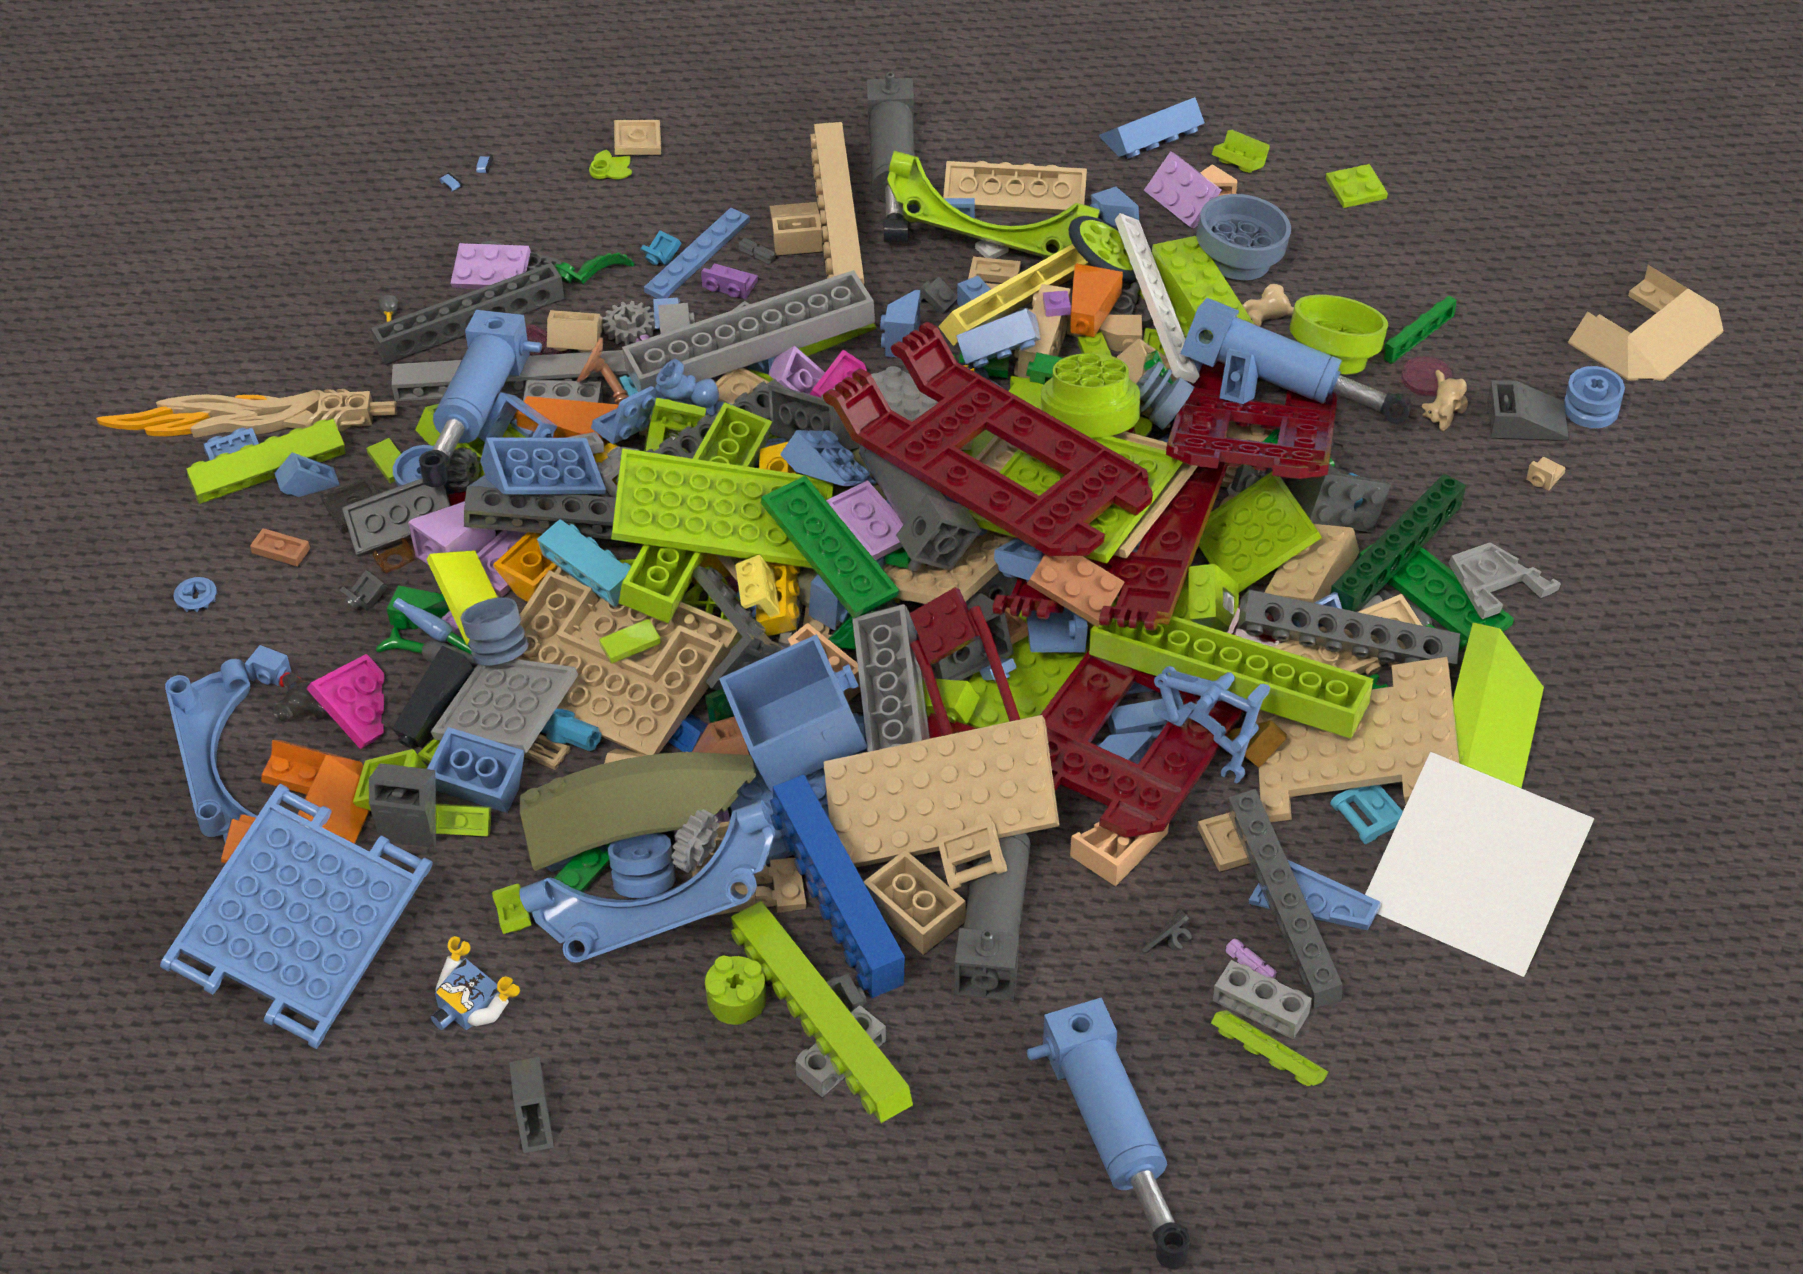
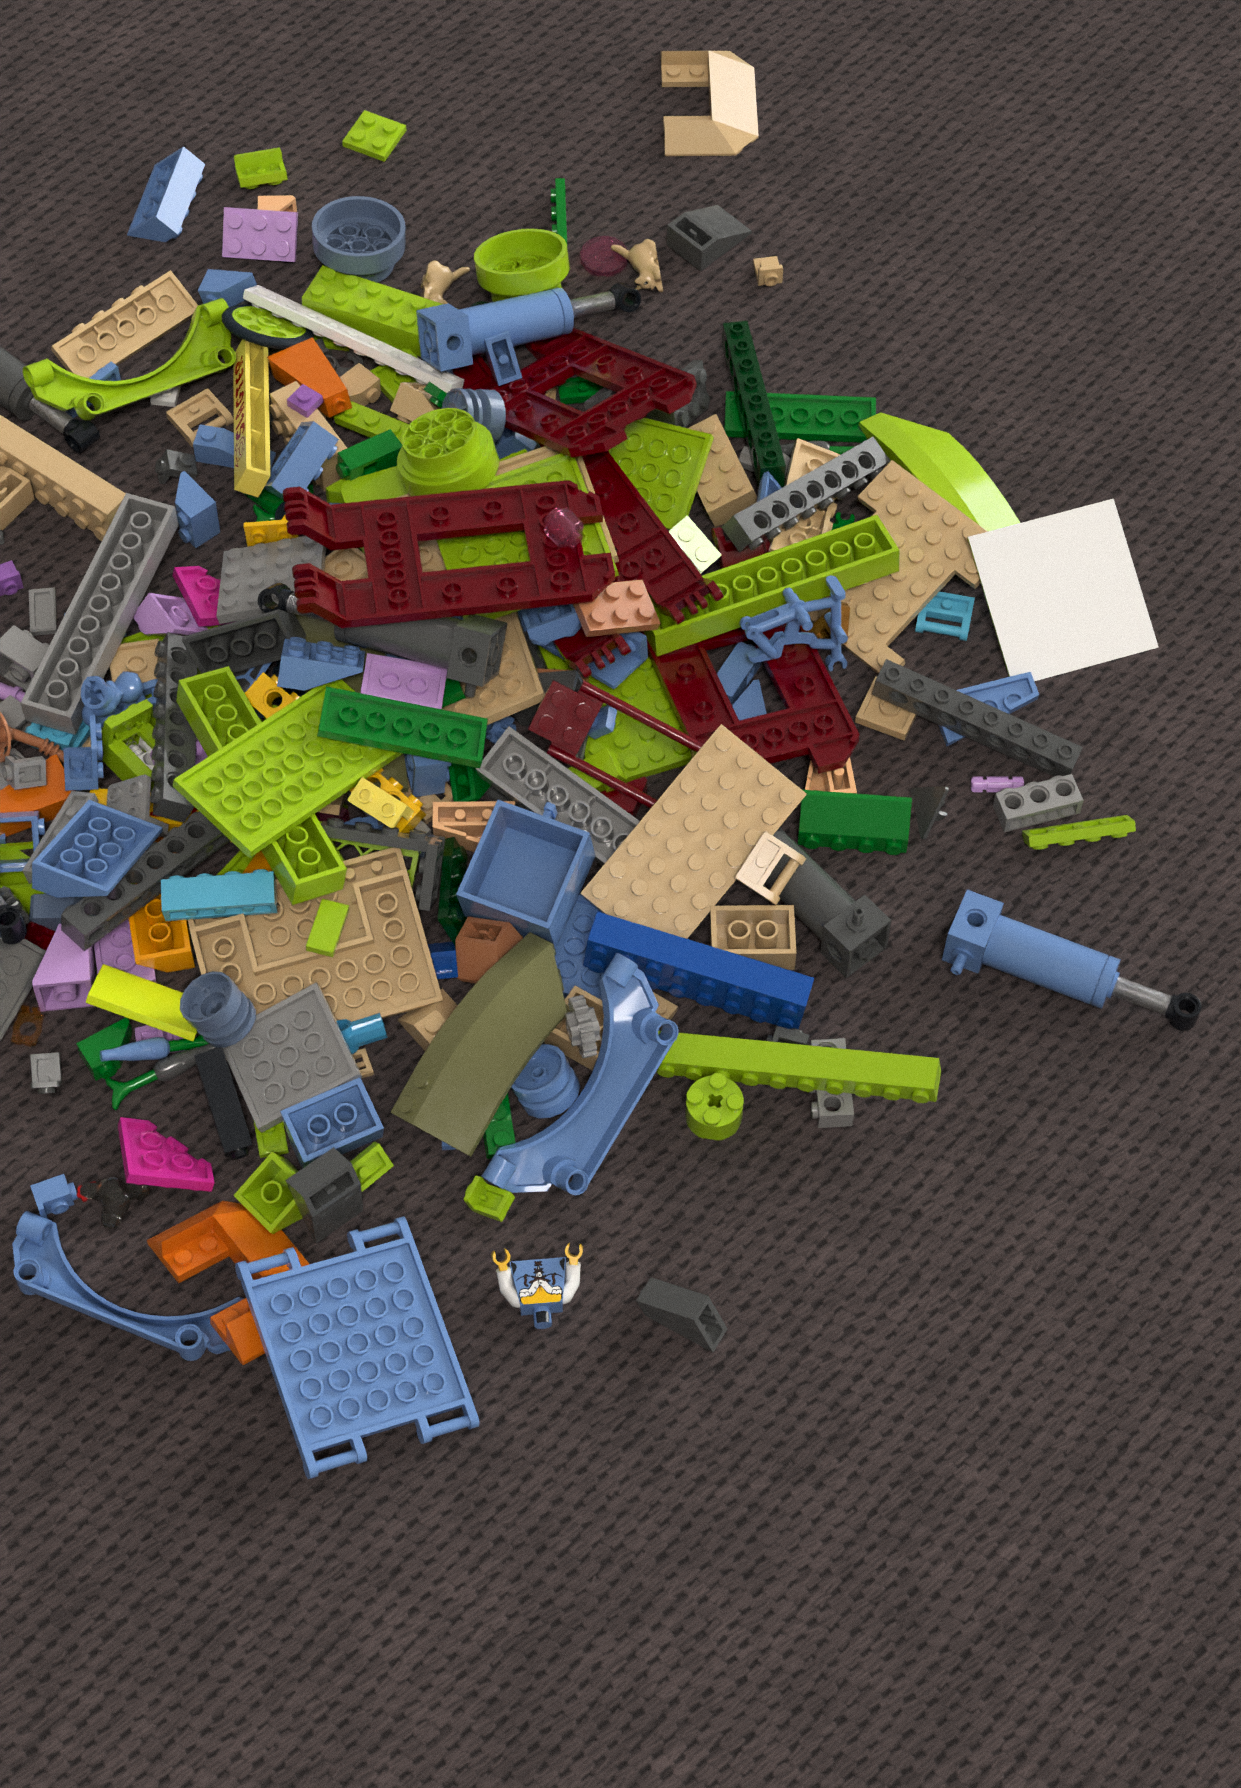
camera: 50 degrees left, 10 degrees up
(579, 396) = (24, 772): none -> light grey bracket
(1087, 489) = (563, 527): none -> clear pink head
(1094, 889) = (854, 822): none -> green slope
(1490, 569) = (820, 374): light grey wing -> none
(1593, 397) = (738, 185): medium blue wheel -> none

